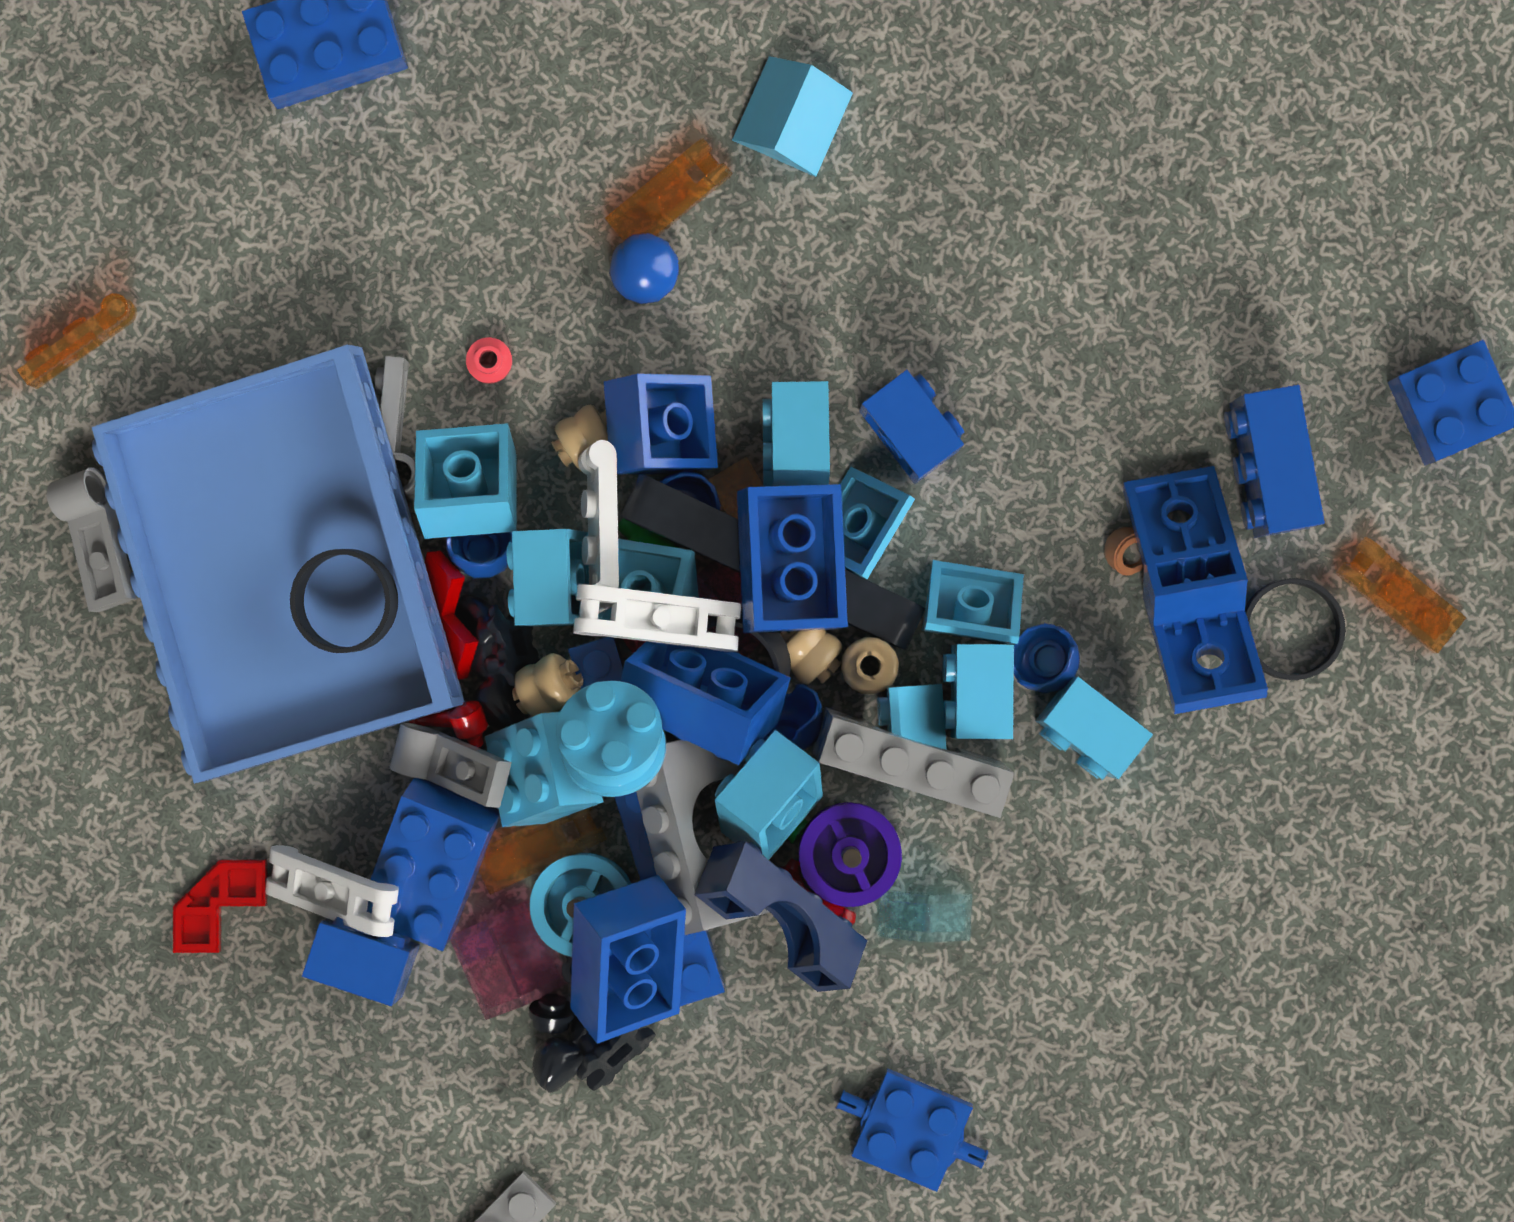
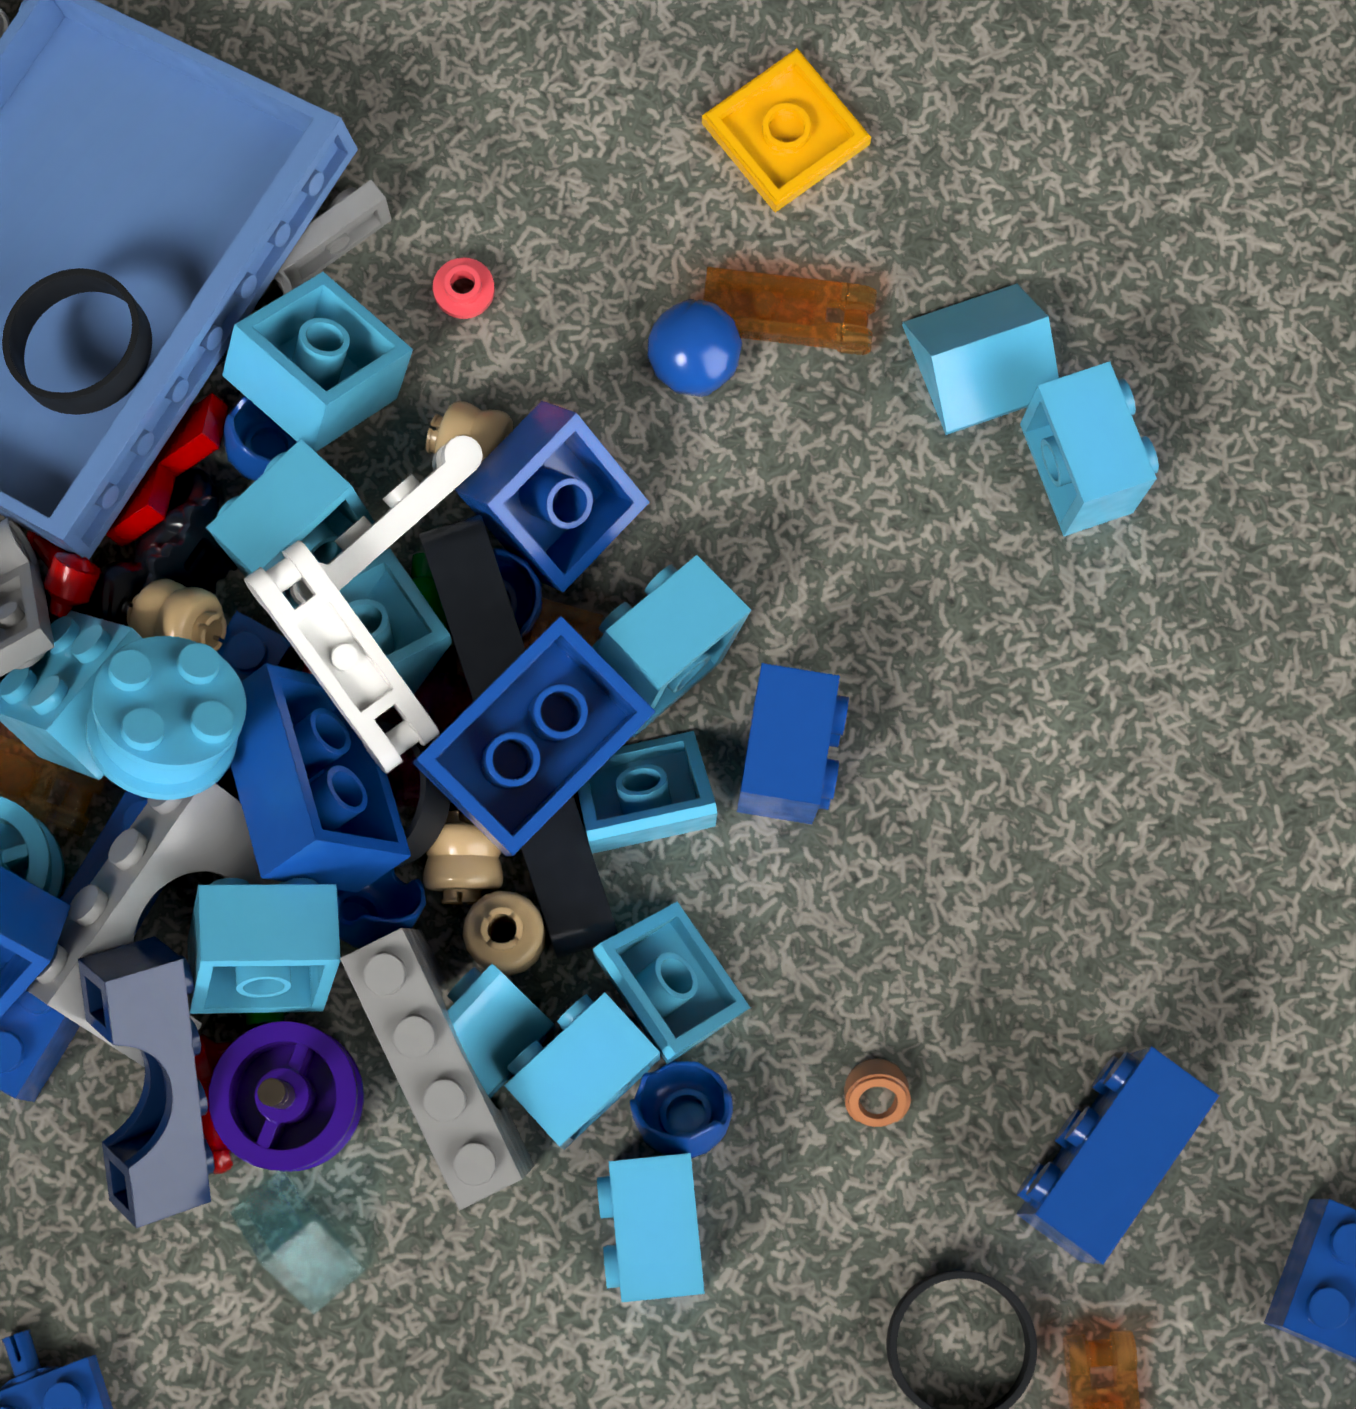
camera: 40 degrees right, 10 degrees down
(562, 97) = (786, 130): none -> yellow tile
(903, 113) = (1089, 448): none -> medium azure brick
(1195, 590) = (900, 1200): blue bracket -> none

